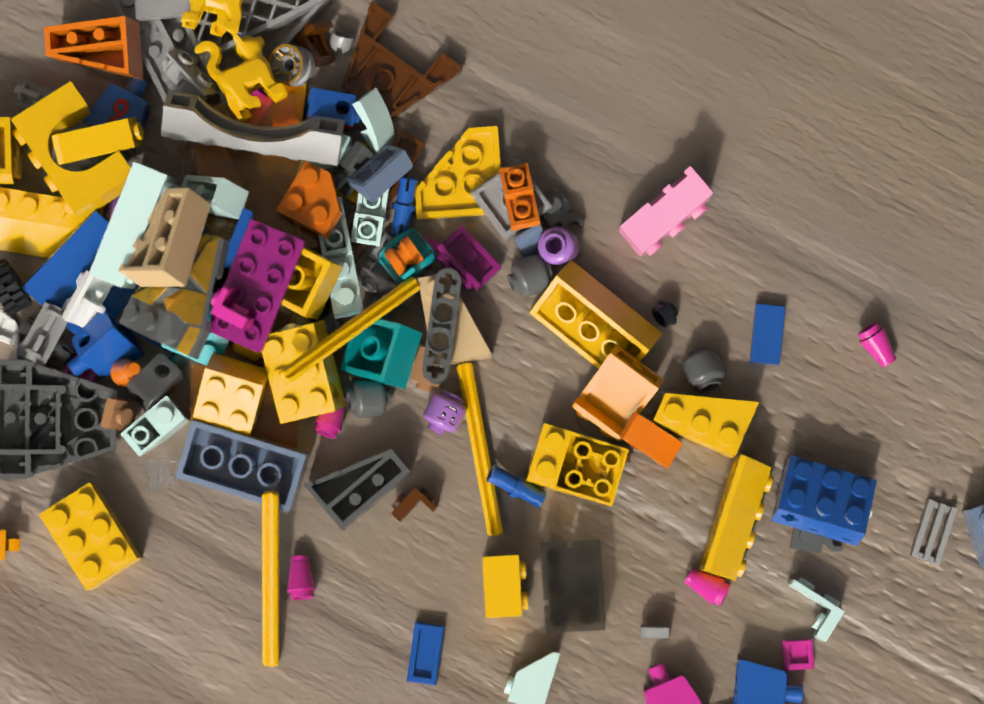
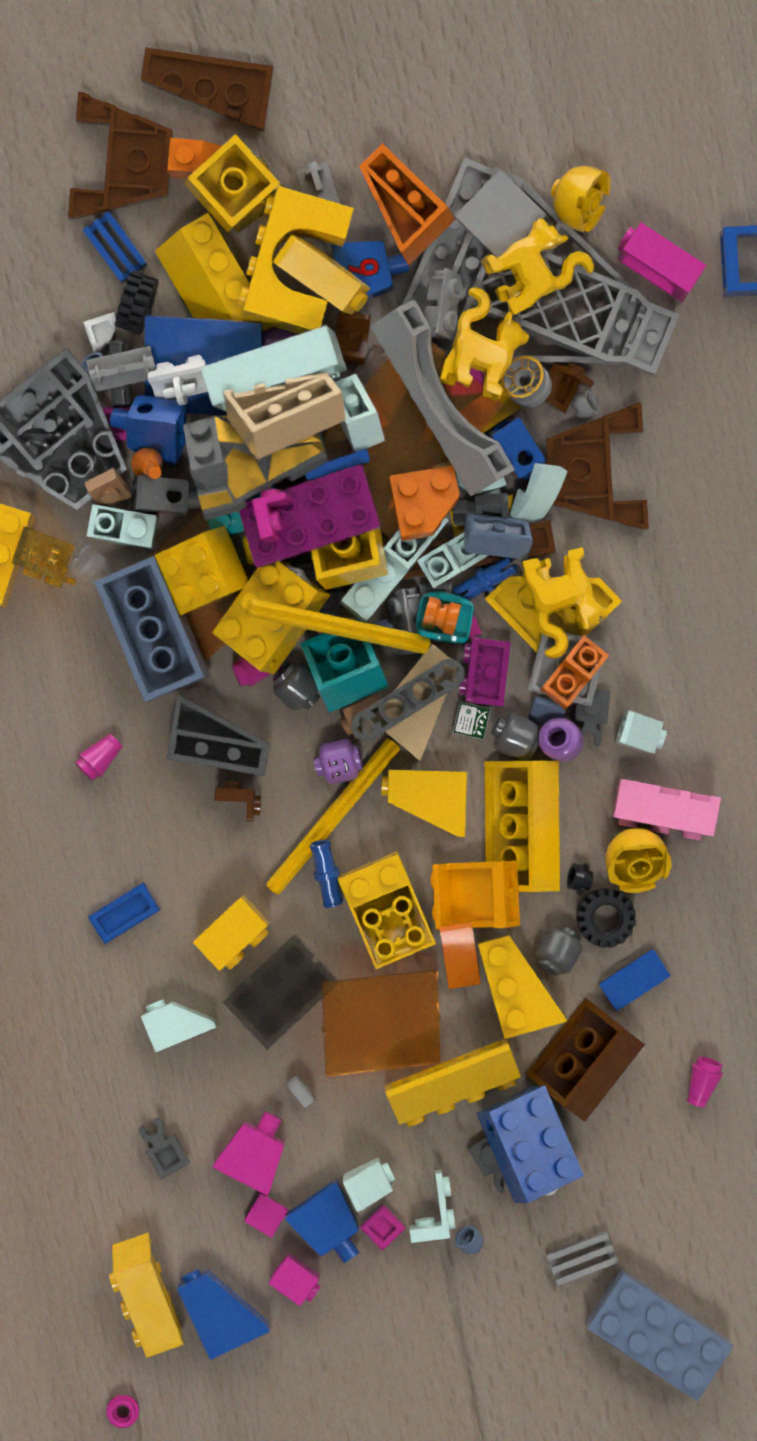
camera: 55 degrees right, 5 degrees up
(128, 499) = (44, 556): none -> clear yellow bracket
(158, 157) = (353, 336): none -> reddish brown bracket
(270, 579) = (77, 732): yellow axle -> none
(456, 161) = (559, 593): none -> yellow animal
(493, 298) = (471, 720): none -> tile
(522, 369) = (430, 795): none -> yellow slope
(598, 188) = (640, 732): none -> light aqua slope
(652, 534) = (381, 1022): none -> clear orange piece
(686, 262) = (637, 860): none -> yellow cylinder
(709, 586) = (376, 1105): dark pink cone -> none
(714, 301) = (586, 913): none -> black tyre
(759, 637) = (368, 1183): none -> light aqua slope
(795, 413) = (585, 1059): none -> reddish brown slope
(856, 603) = (469, 1240): none -> sand blue hinge

